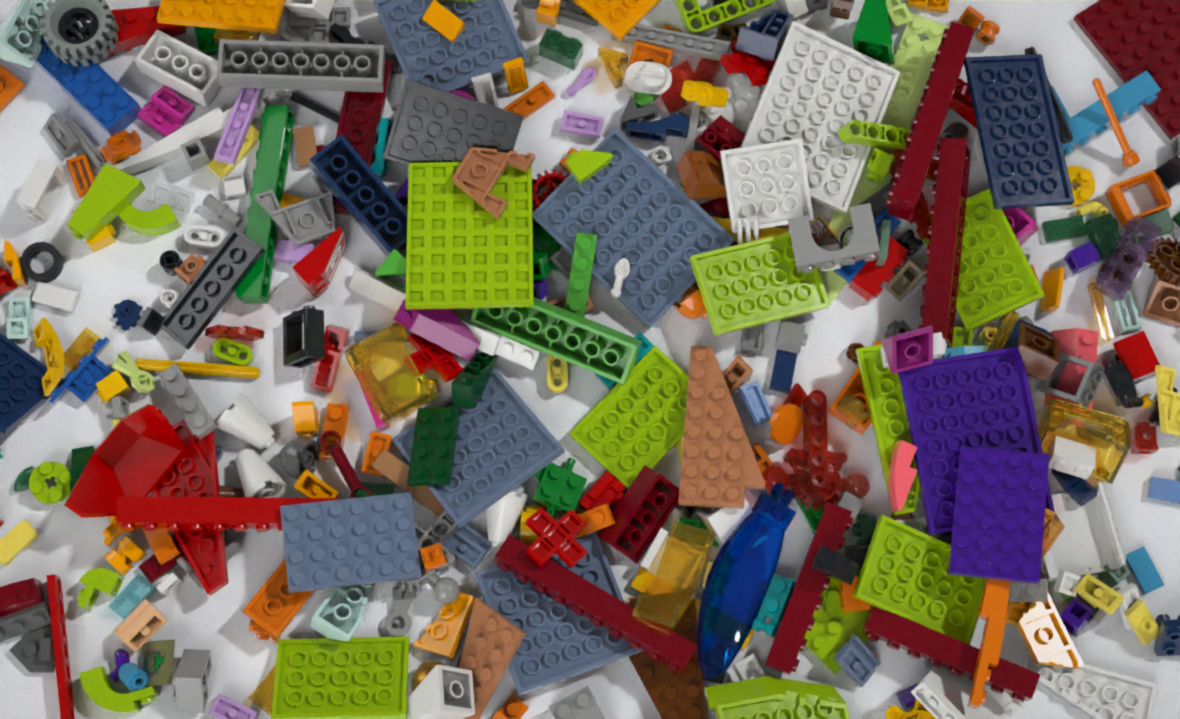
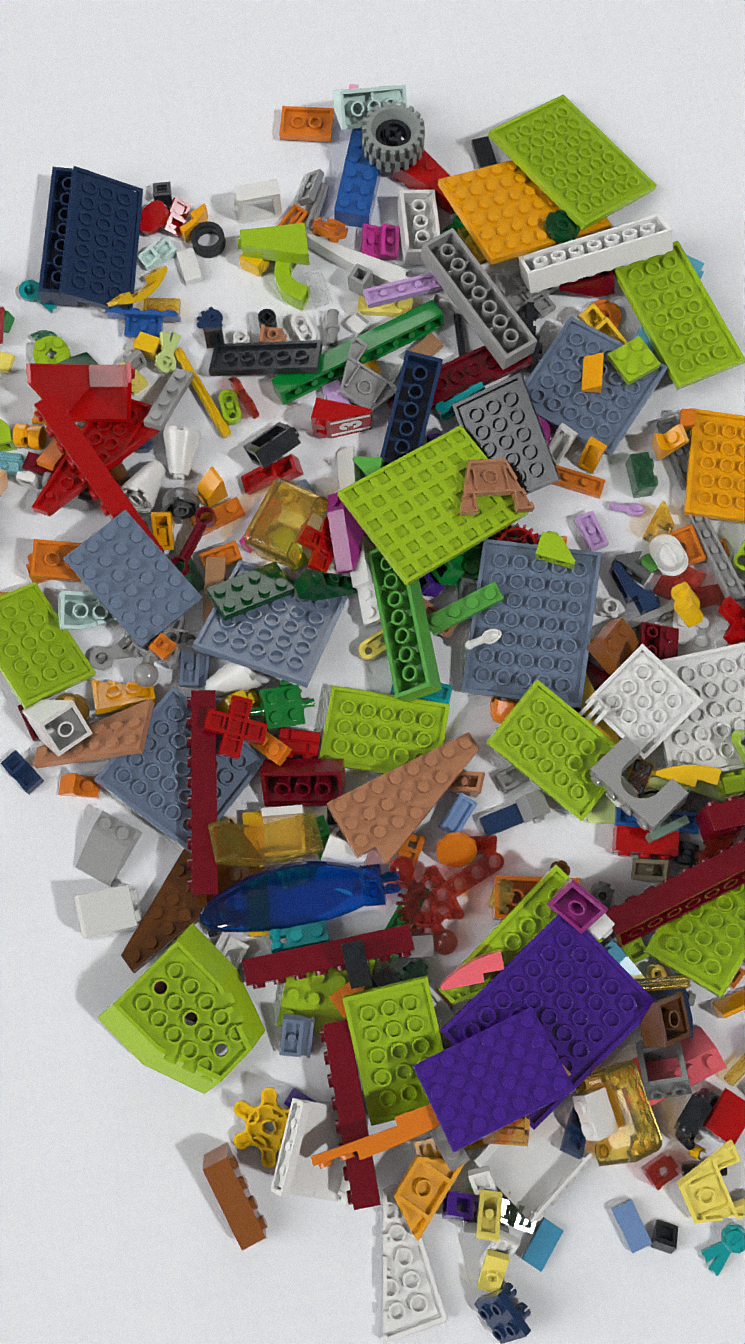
camera: 60 degrees right, 0 degrees up
(849, 193) = (689, 774): none -> yellow slope

